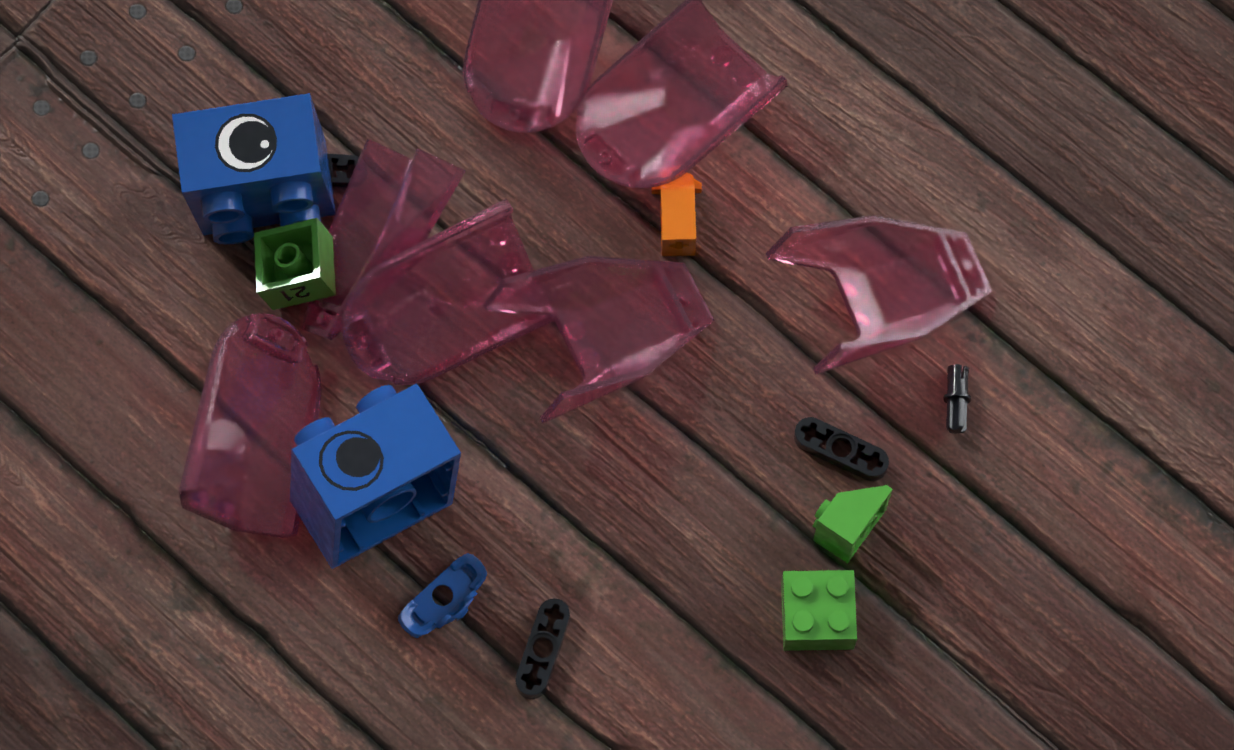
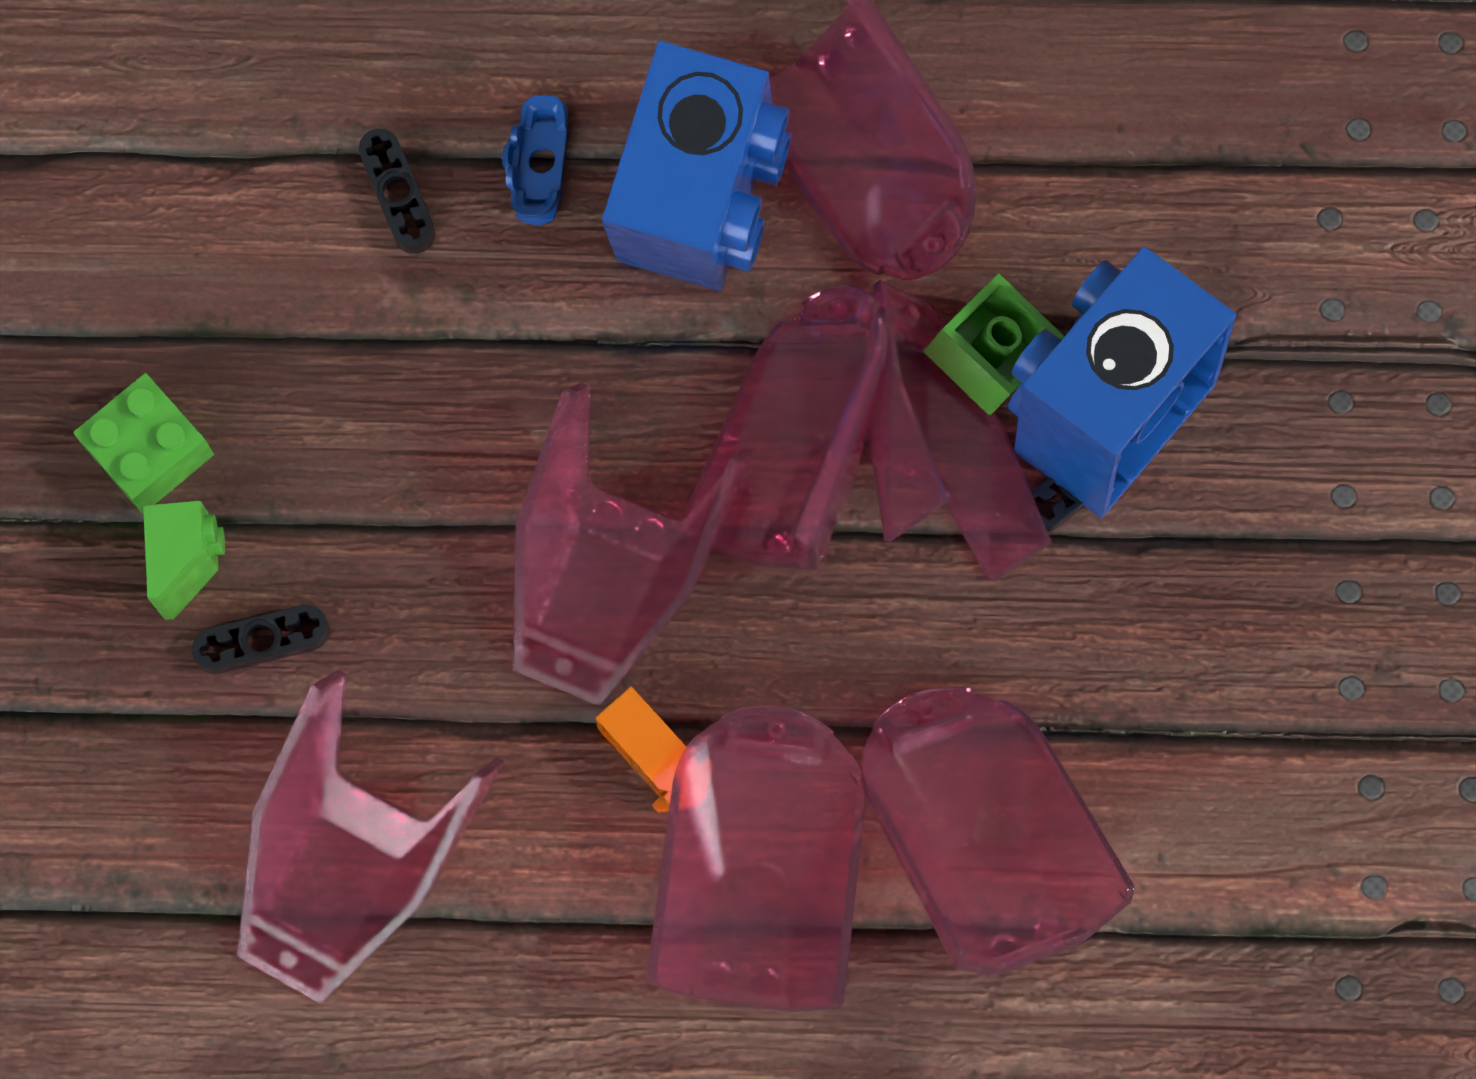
camera: 140 degrees right, 5 degrees up
(957, 398) = (178, 794): black axle -> none

